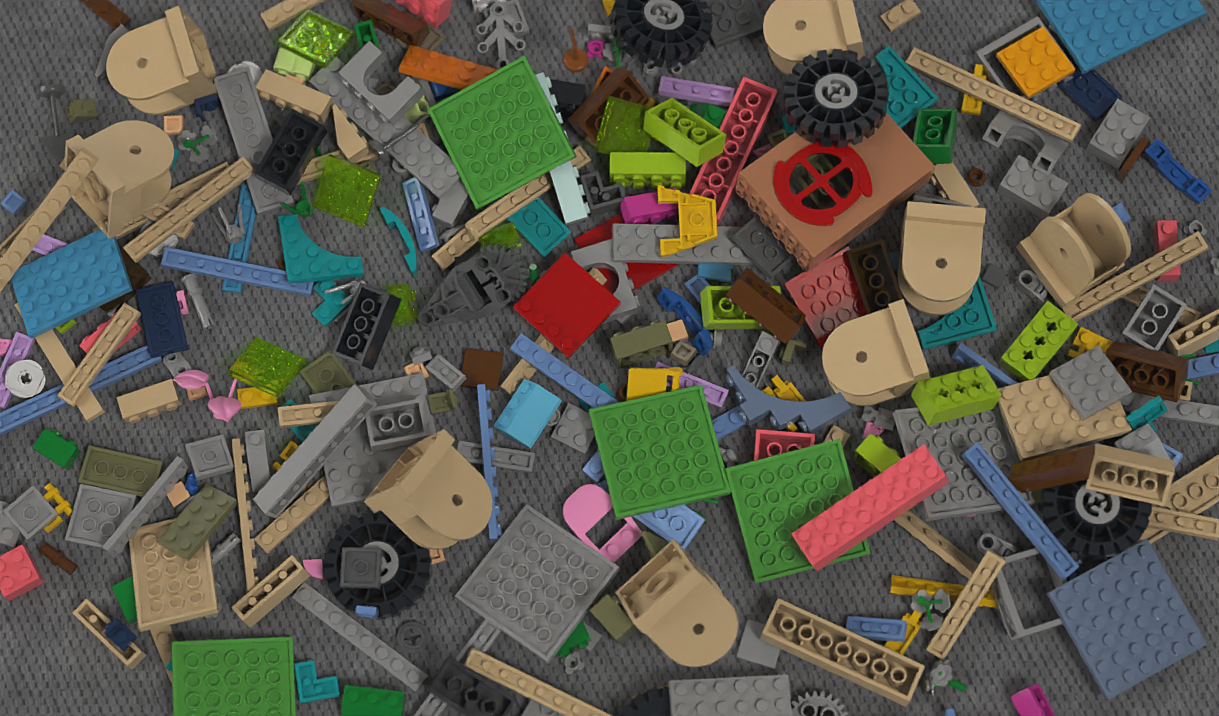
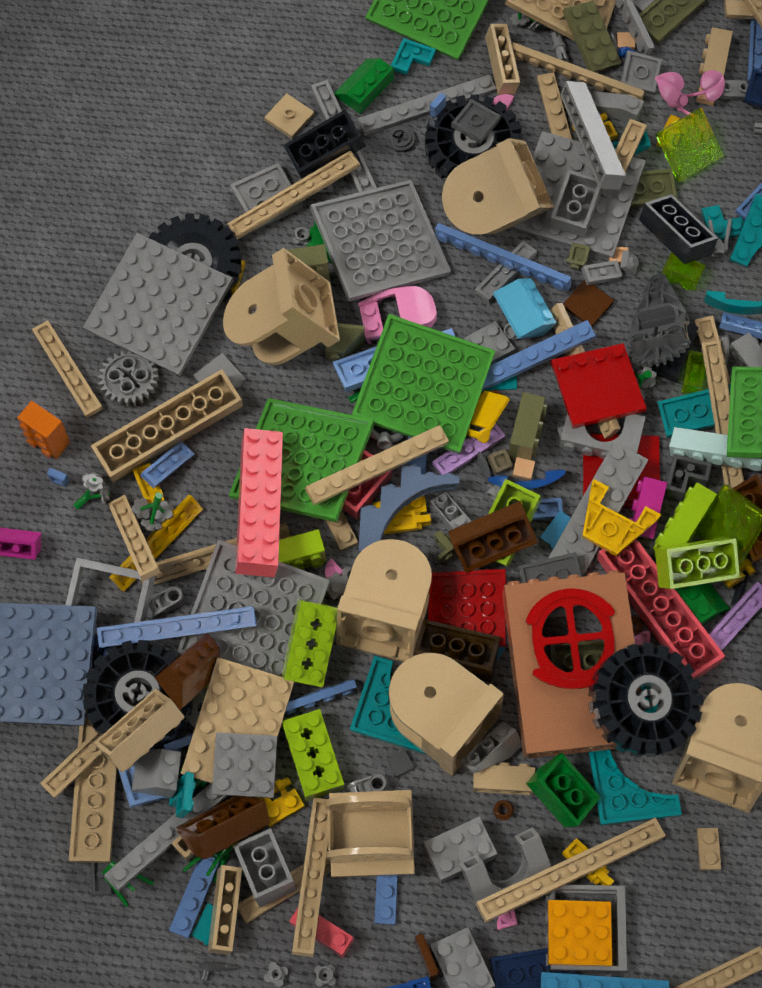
camera: 120 degrees right, 5 degrees down
(767, 436) = (376, 465): none -> tan plate

